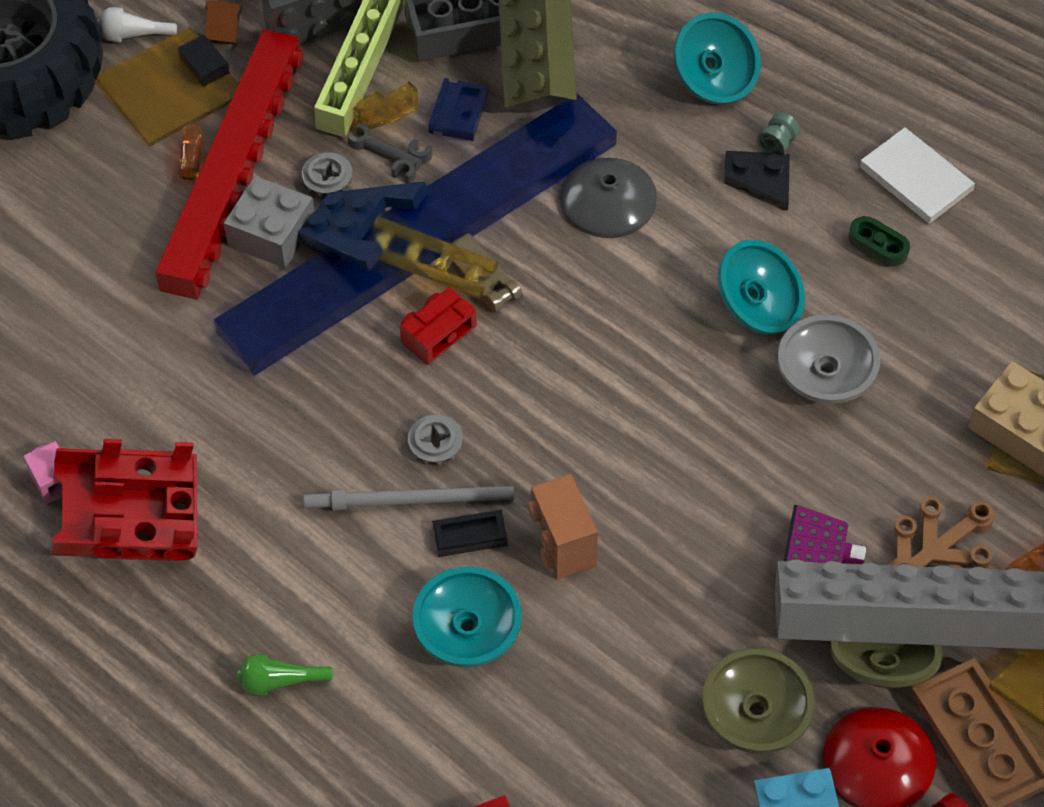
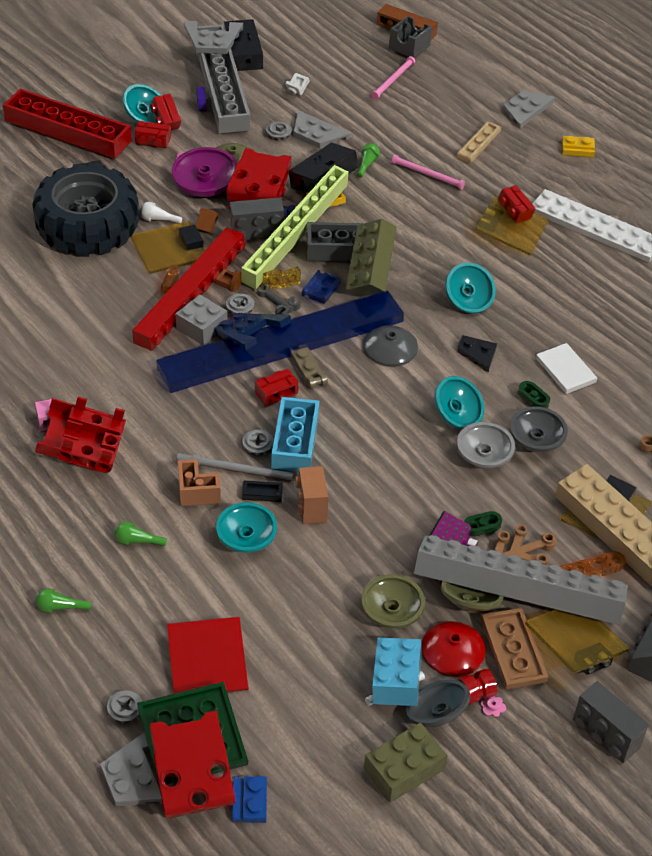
camera: 10 degrees right, 10 degrees down
(294, 129) = (229, 280): none -> dark orange tile
(356, 559) = (196, 487): none -> nougat brick
(438, 272) = (284, 361): clear yellow bar -> none
(499, 414) = (295, 434): none -> medium azure brick
(777, 138) = (494, 332): sand green wheel -> none
(859, 509) = (481, 522): none -> dark green plate
(912, 295) = (538, 429): none -> dark grey dish

